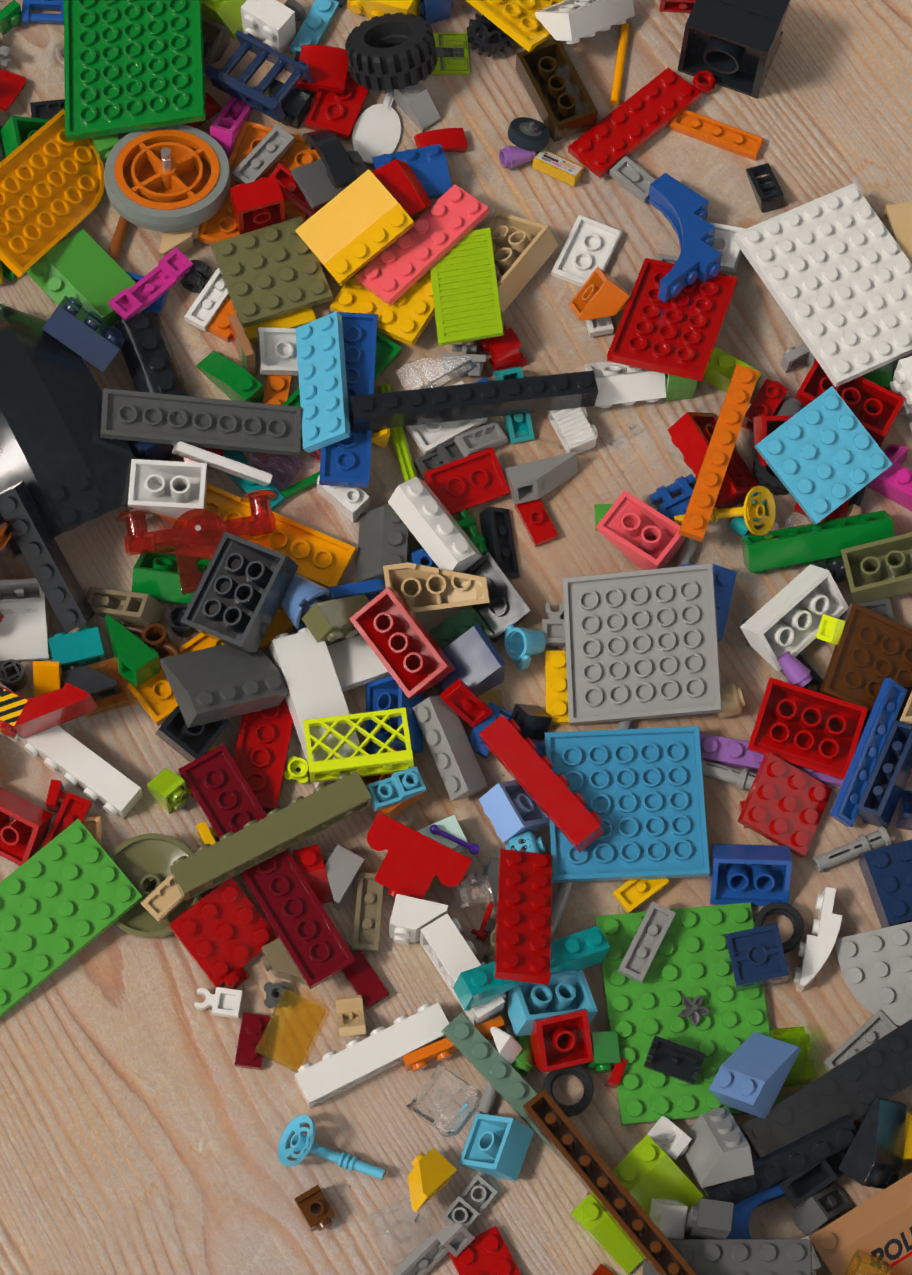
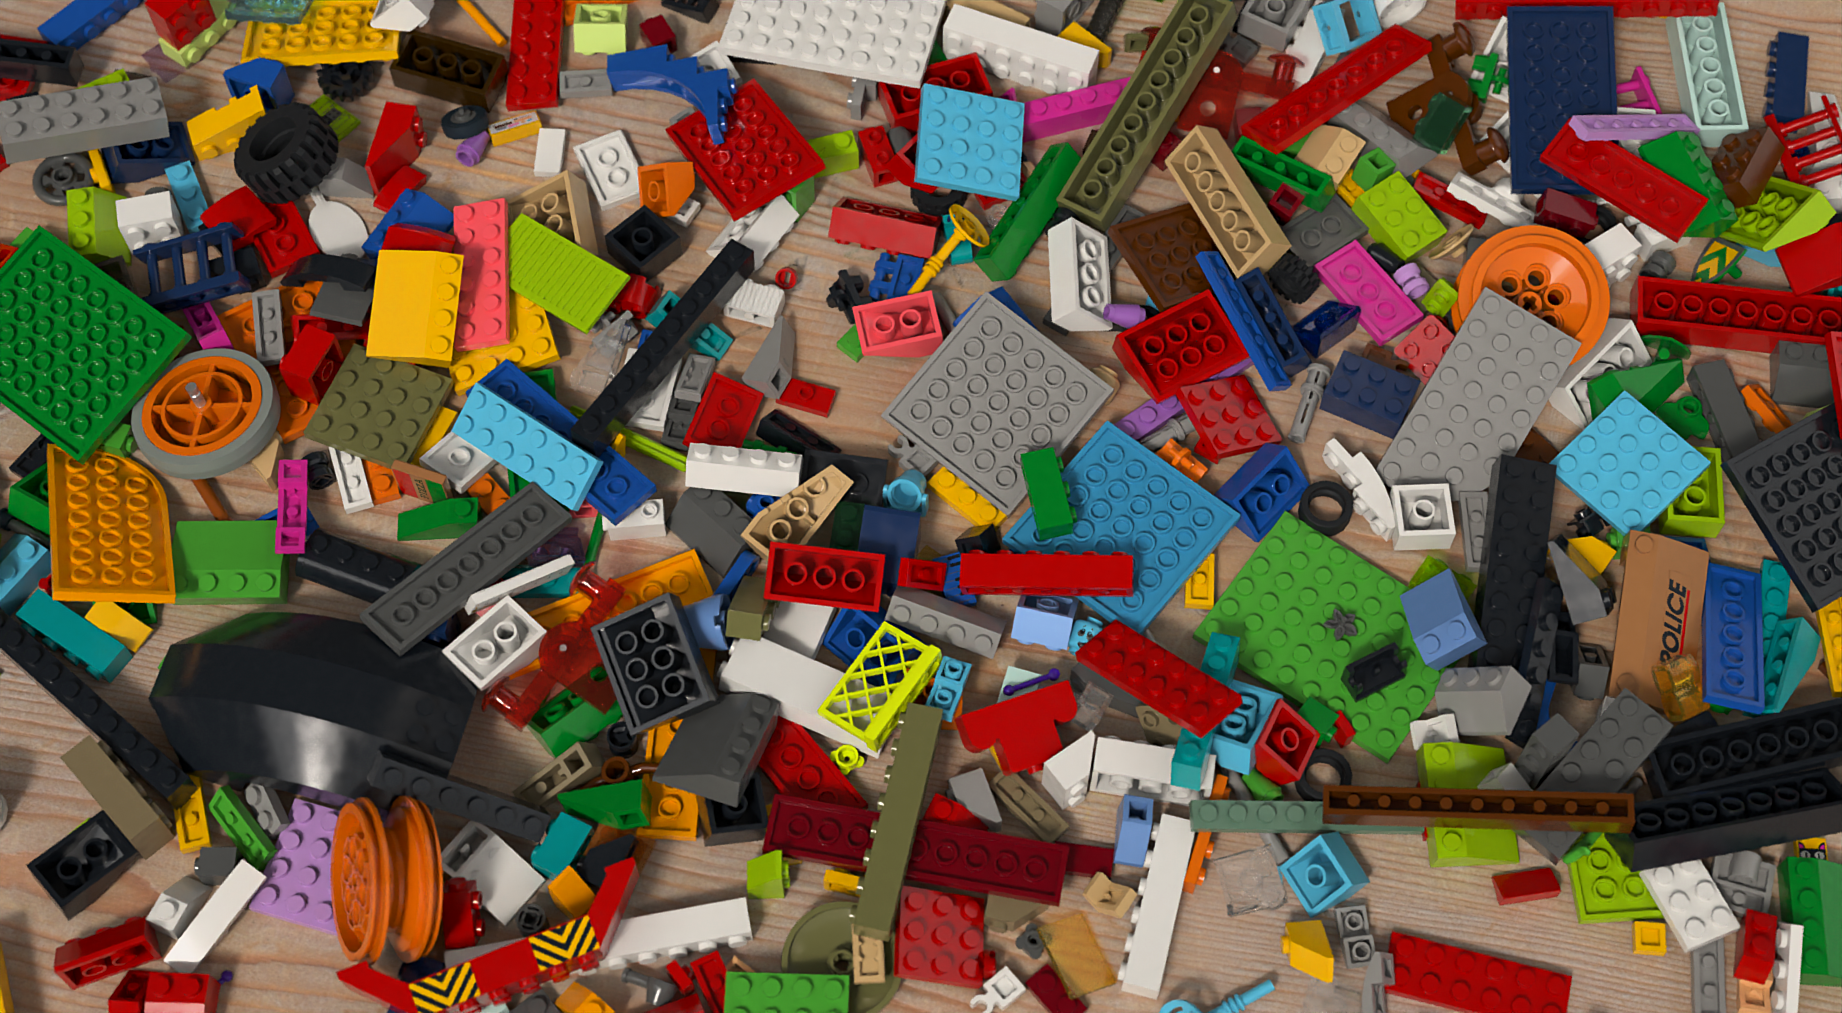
camera: 45 degrees left, 5 degrees down
(36, 789) = (657, 991): none -> dark grey bar
(84, 333) = (283, 592): dark blue brick -> none
(409, 993) = (1132, 830): none -> medium blue slope
(467, 107) = (395, 143): none -> red slope
(482, 933) = (1127, 733): red piece -> none
(506, 1044) = (1247, 787): white slope -> none
(545, 322) = (643, 244): none -> black brick
(561, 204) = (549, 152): none -> white tile
(601, 732) = (1048, 493): none -> green brick
(610, 427) = (781, 277): none -> red hinge
(634, 479) = (845, 294): none -> black hips
(646, 942) = (1255, 611): light grey plate -> none
(684, 150) = (600, 28): none -> yellowish green slope
(716, 190) = (658, 32): none -> dark red brick
(717, 801) = (1182, 460): none -> orange hips
(719, 453) = (892, 212): orange plate -> none
(757, 957) = (1345, 537): dark blue piece -> none
(830, 629) = (1116, 261): neon yellow plate -> none
(831, 998) = (1422, 517): none -> white brick

